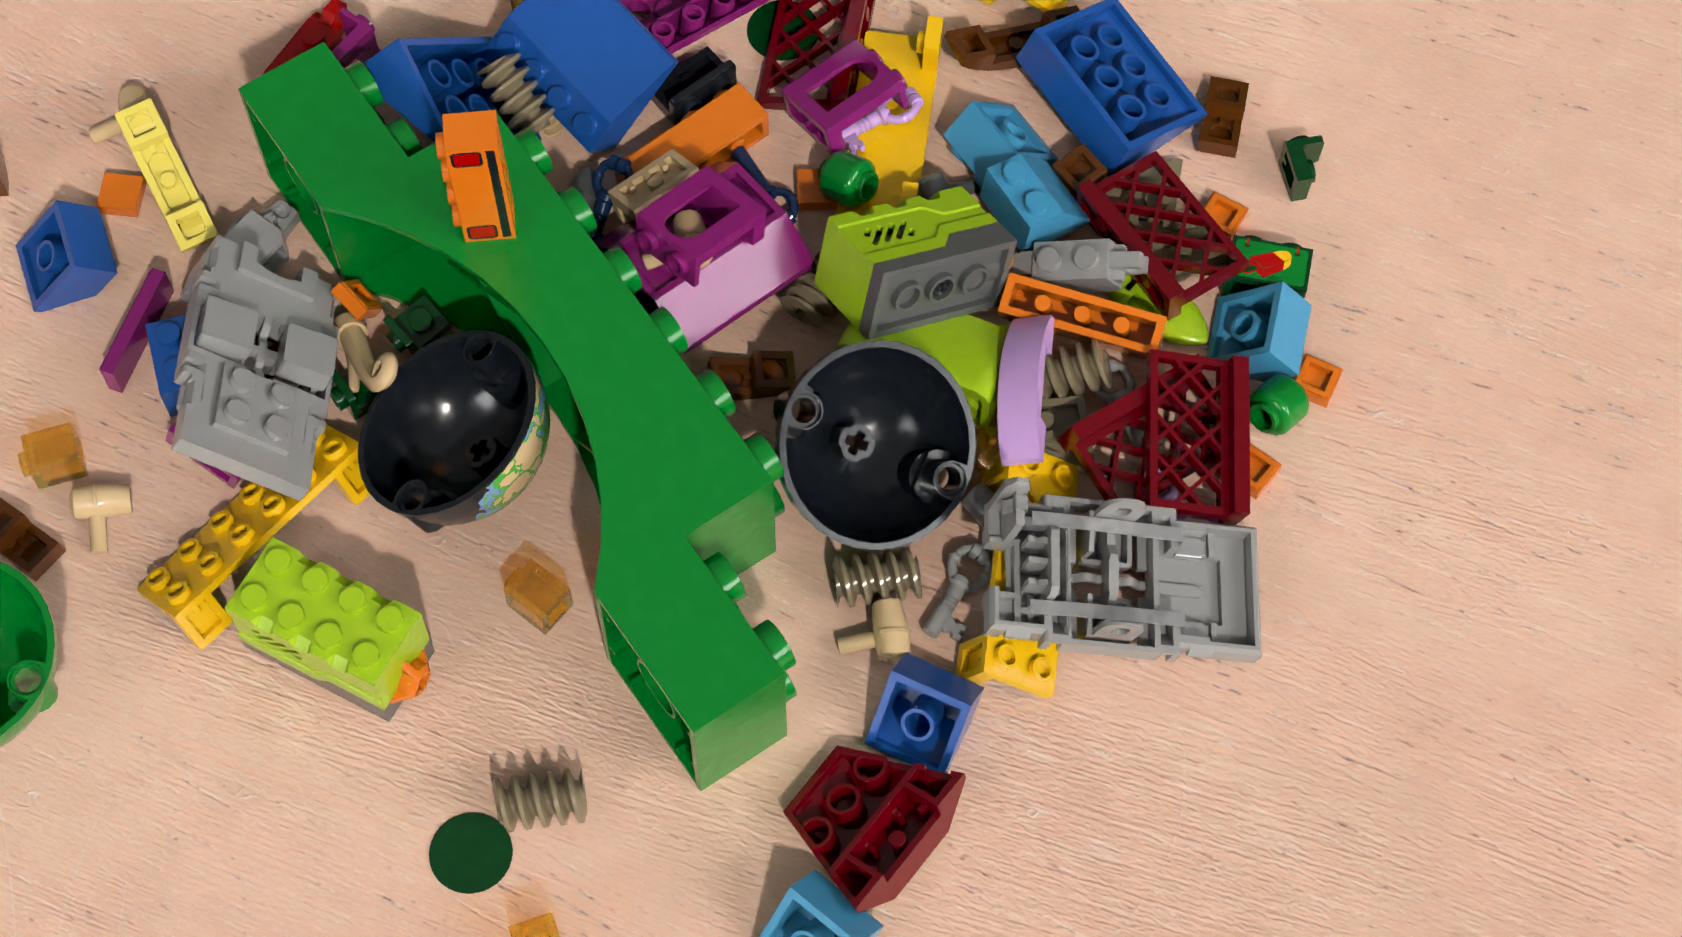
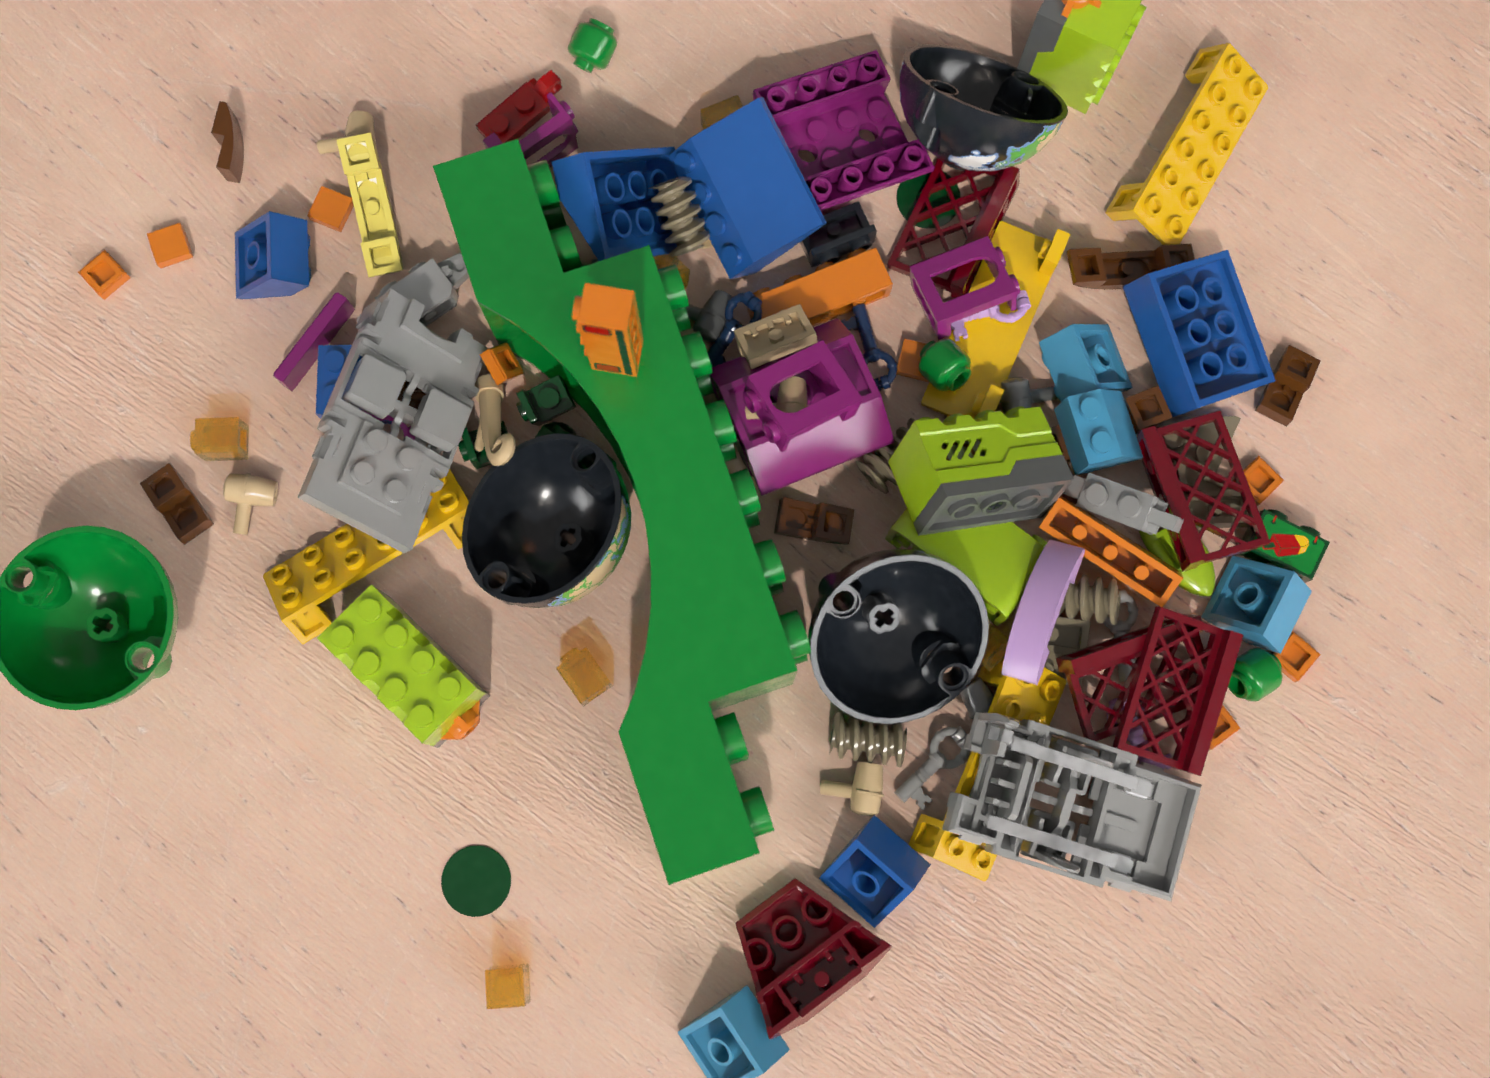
camera: 15 degrees right, 15 degrees up
(540, 800) = (541, 860): dark tan piece -> none
(1298, 164) = (1337, 452): dark green bracket -> none

